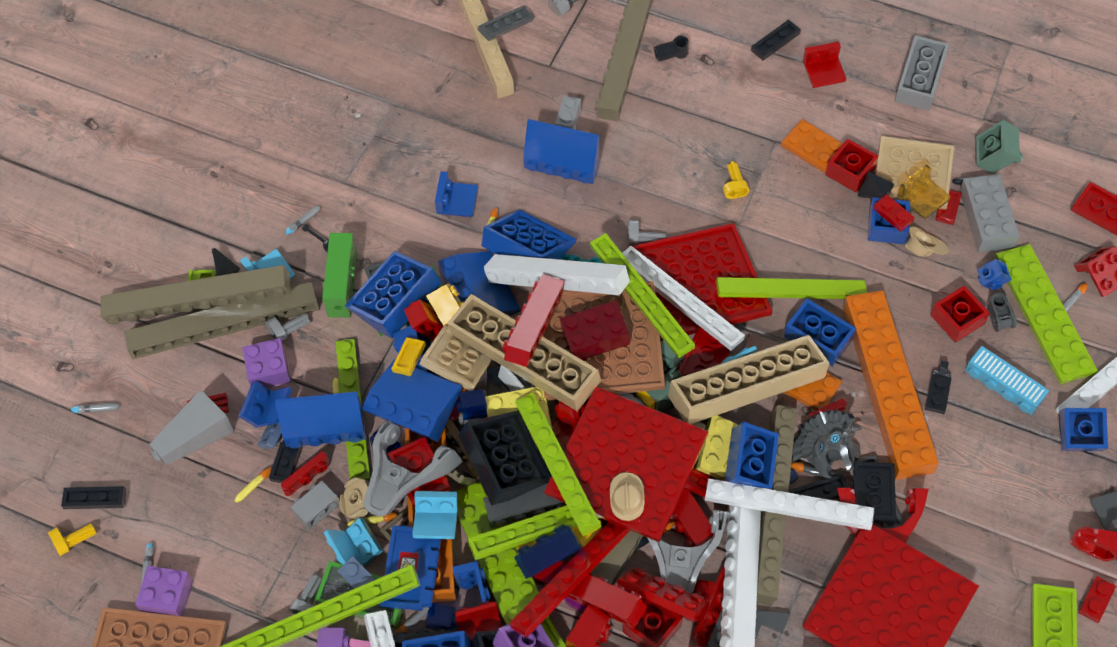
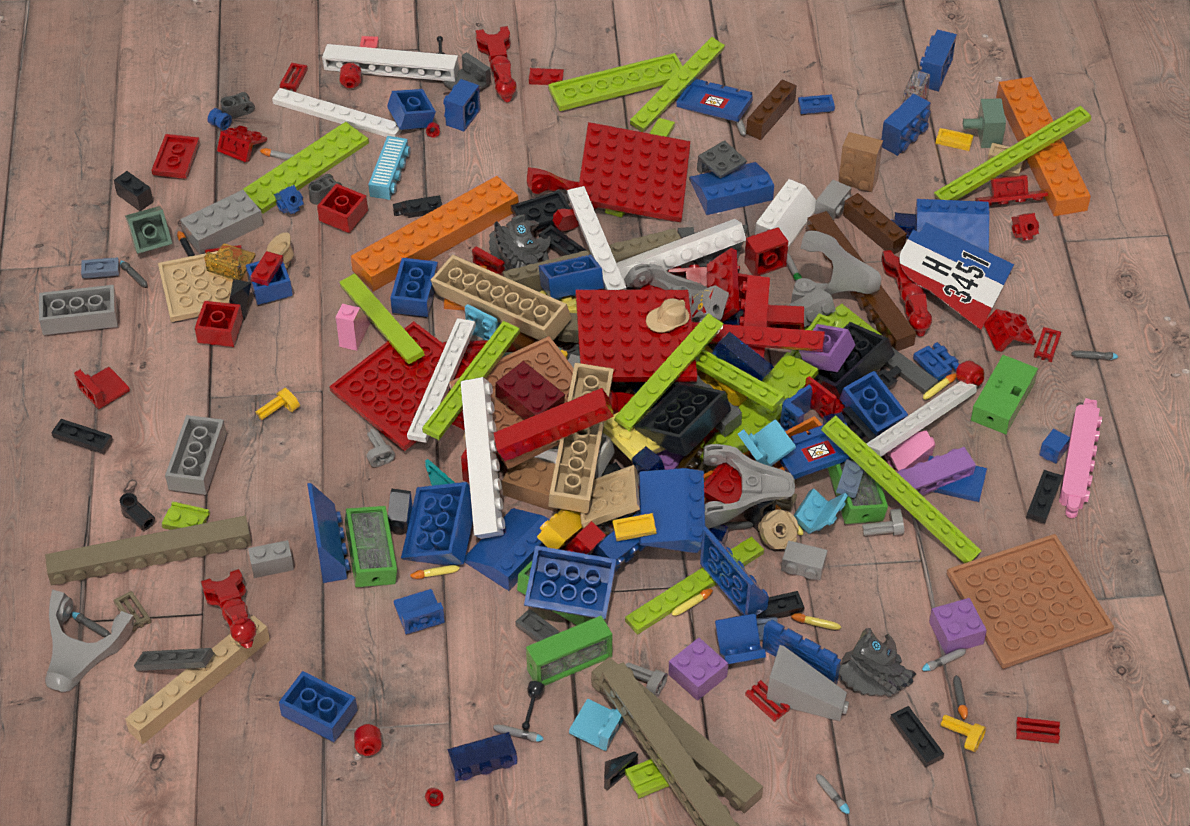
camera: 120 degrees left, 10 degrees down
(28, 599) = (1037, 726): none -> red tile
(91, 551) = (962, 709): none -> dark grey piece
(169, 496) = (875, 667): none -> dark grey piece
(219, 442) = (809, 651): none -> blue hinge
(286, 142) = (431, 800): none -> red hinge
(295, 184) = (482, 756): none -> clear blue brick
(304, 475) = (781, 582): red hinge -> none
(360, 119) = (367, 740): none -> red head
(407, 97) = (318, 706): none -> blue brick
(500, 57) = (228, 596): none -> red piece
(537, 185) = (370, 546): none -> brick
(559, 216) = (399, 510): none -> slope
(578, 24) = (139, 622): none -> dark tan tile
(640, 561) = (709, 300): none -> light grey torso
(649, 82) = (184, 515): none -> lime plate
(706, 102) = (196, 454): none -> light grey brick
(793, 259) = (351, 326): none -> bright pink slope
(811, 145) = (202, 366): orange plate -> none
(958, 131) = (134, 274): none -> dark grey piece
(974, 107) = (100, 267): none -> sand blue plate
(1051, 446) = (436, 131): none -> red hinge
(1065, 159) = (133, 191): none -> black brick
(1069, 480) = (462, 105): none -> blue brick

